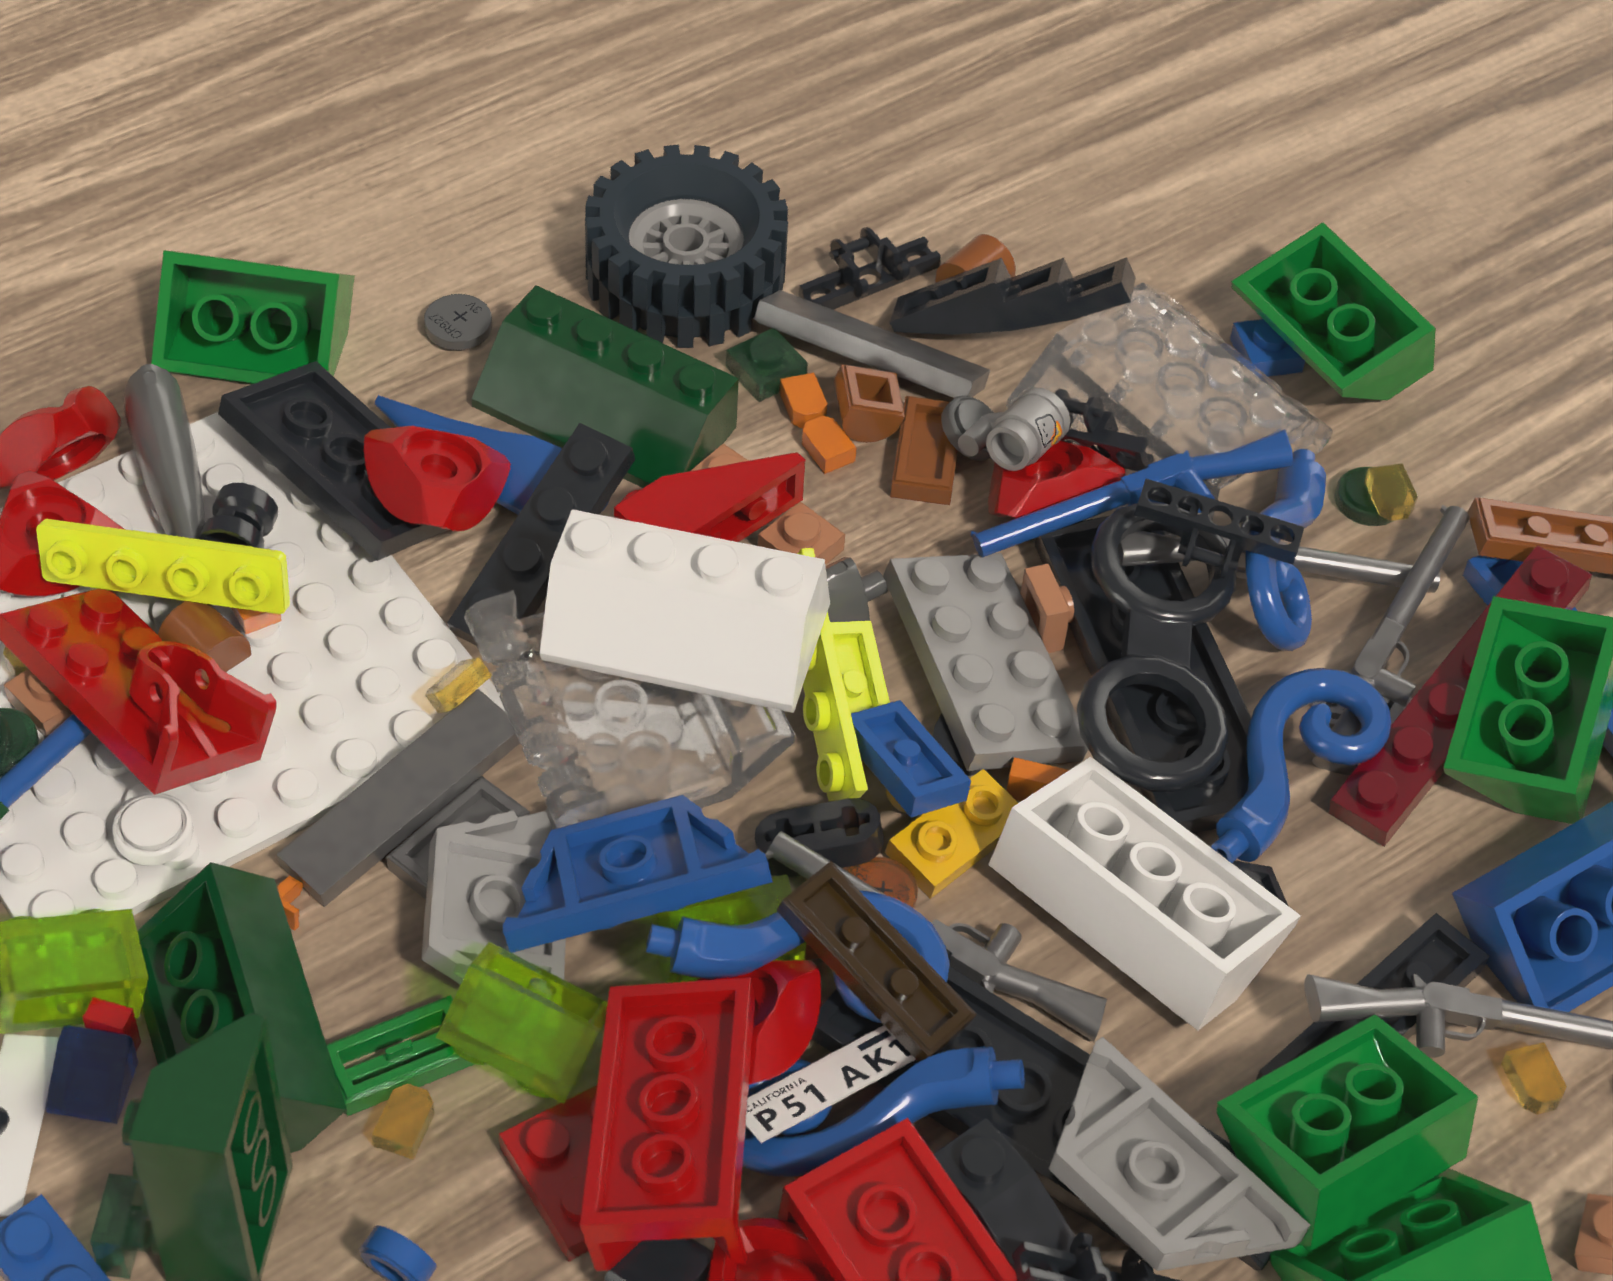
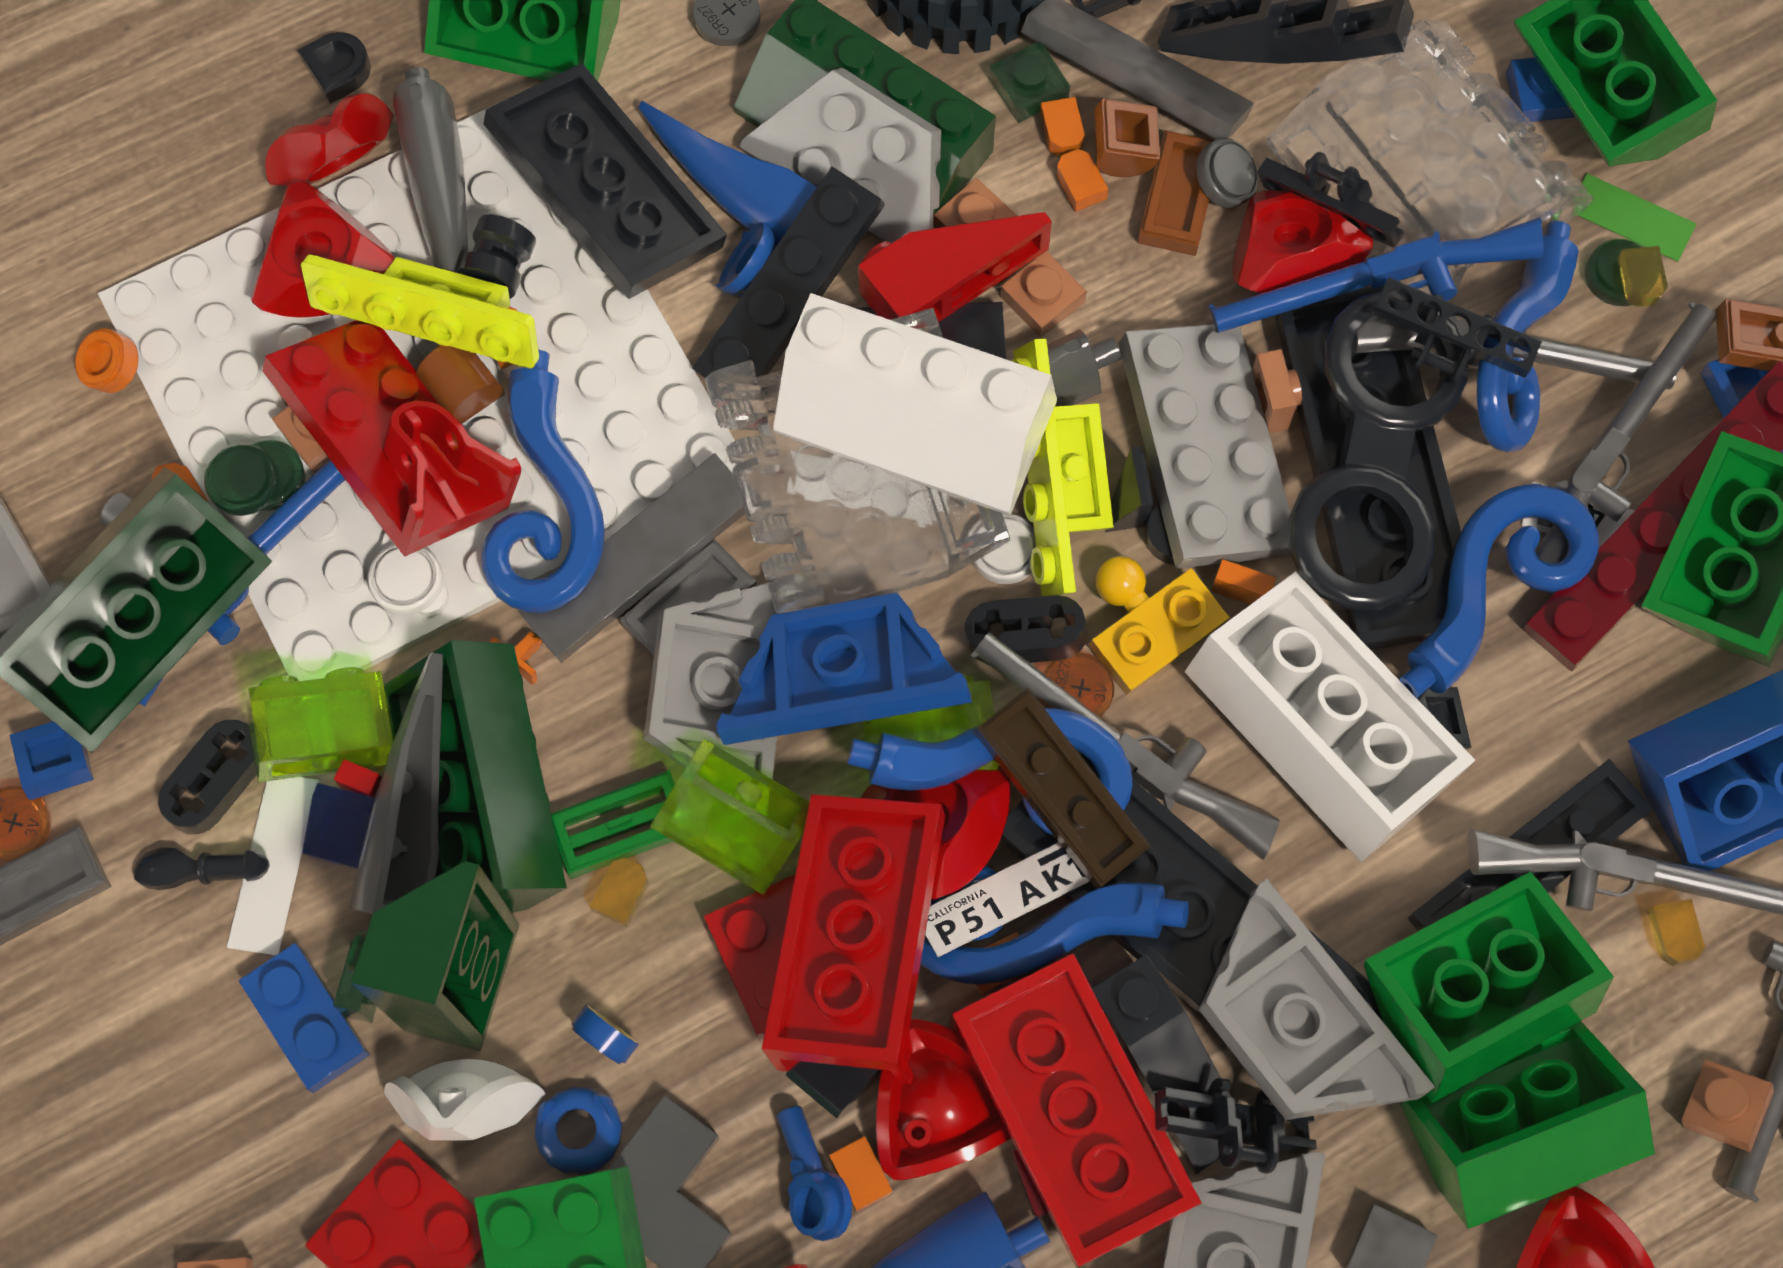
camera: 10 degrees right, 20 degrees up
(56, 376) = (337, 64): none -> black tile
(166, 1014) = (403, 825): none -> dark grey piece
(285, 673) = (533, 421): none -> blue plant
(434, 476) = (687, 215): red hat -> none
(457, 684) = (695, 446): clear yellow piece -> none
(496, 524) = (746, 260): none -> blue piece
(610, 398) = (865, 138): none -> light grey wing
(791, 775) = (1012, 560): none -> white piece
(908, 759) = (1117, 560): blue plate -> none
(917, 693) = (1133, 494): none -> black slope
(1021, 432) = (1271, 195): light grey piece -> none
(1376, 450) = (1636, 218): none -> bright green sticker

